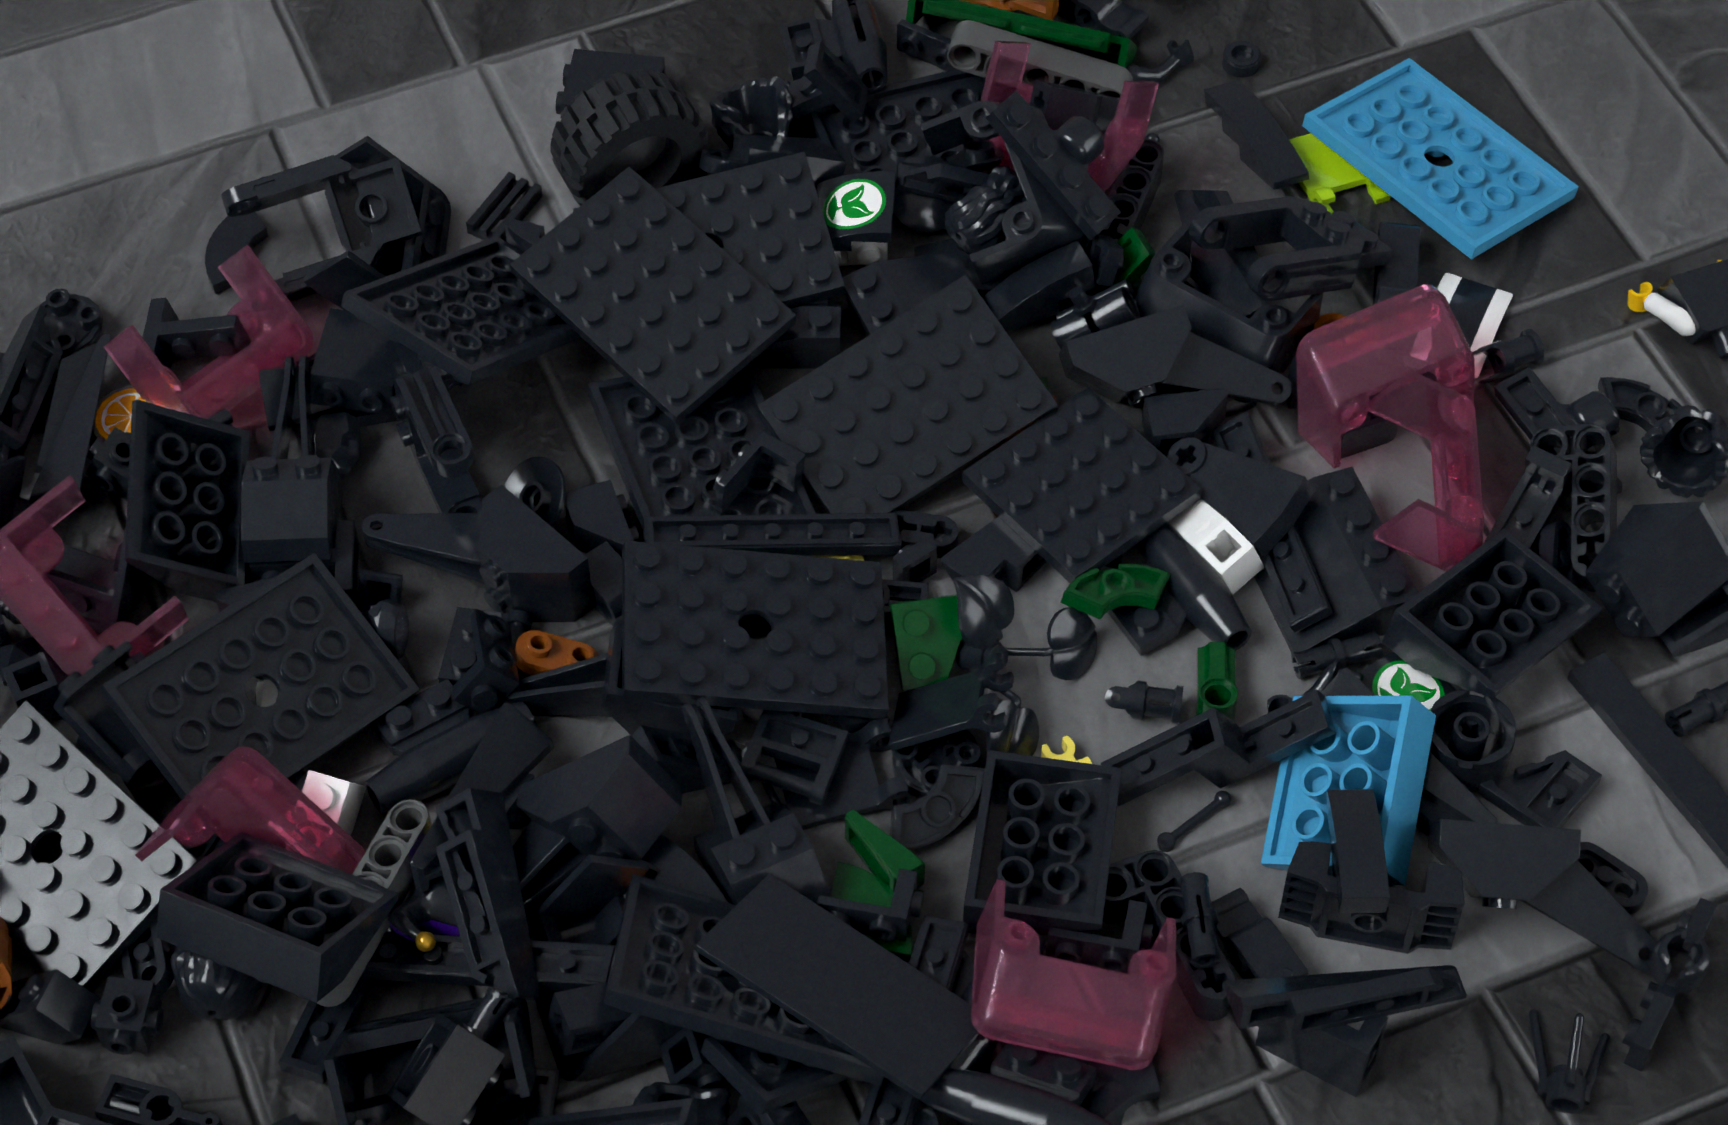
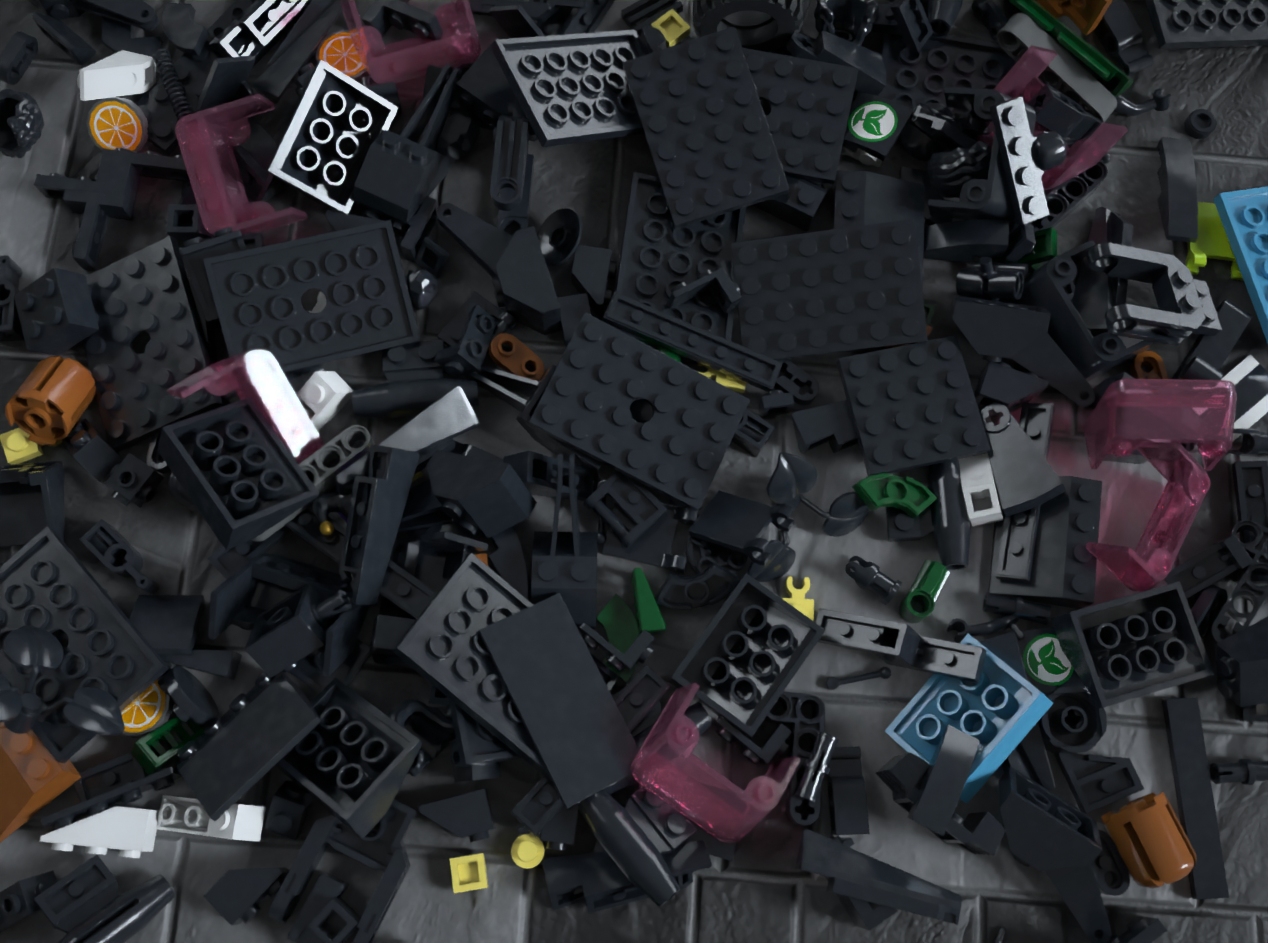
camera: 20 degrees right, 20 degrees up
(542, 212) = (672, 27): none -> light yellow plate
(925, 639) = (752, 465): dark green wing -> none
(1640, 820) = (1151, 841): none -> dark orange cylinder

